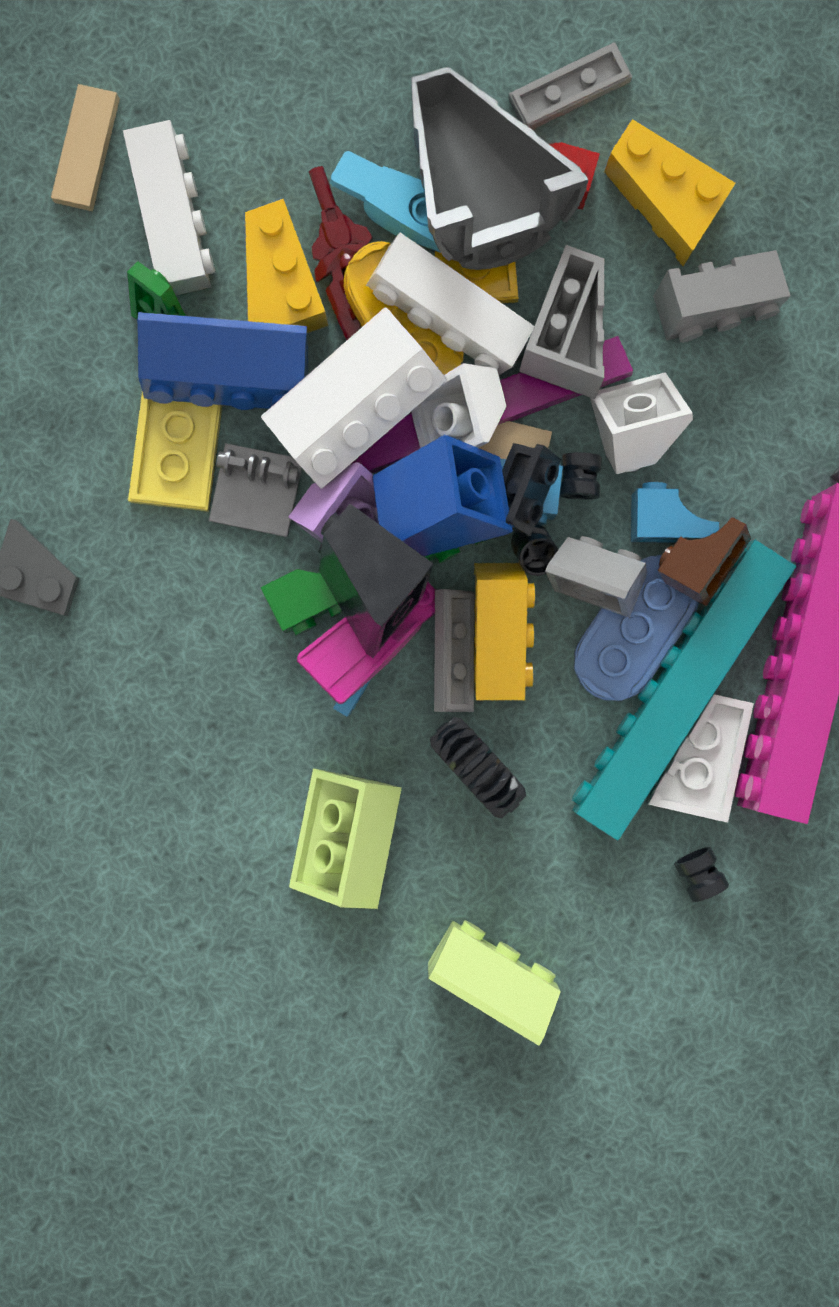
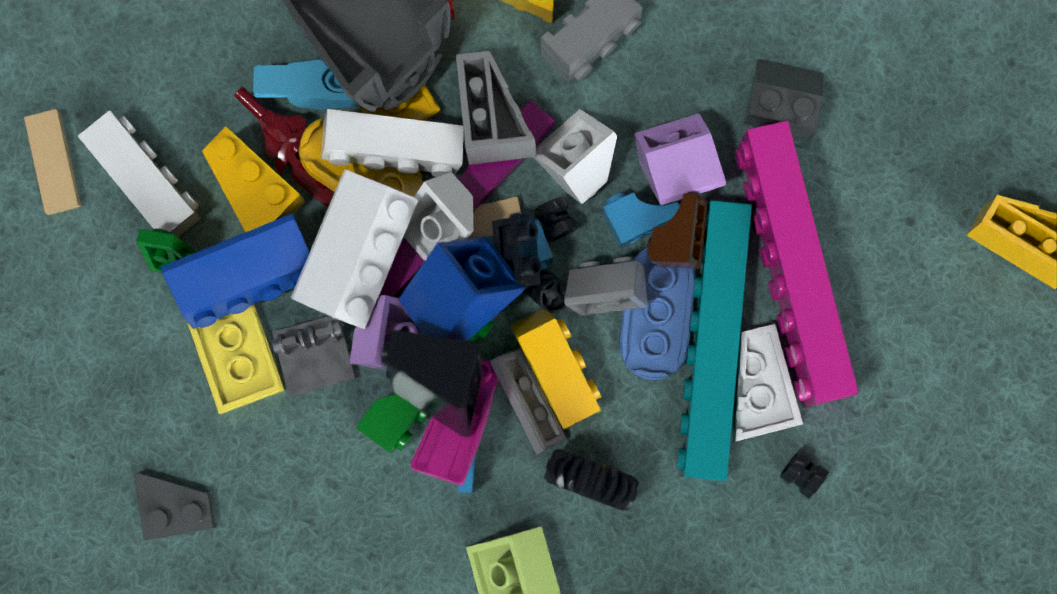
camera: 25 degrees left, 5 degrees down
(745, 478) = (679, 159): none -> lavender slope

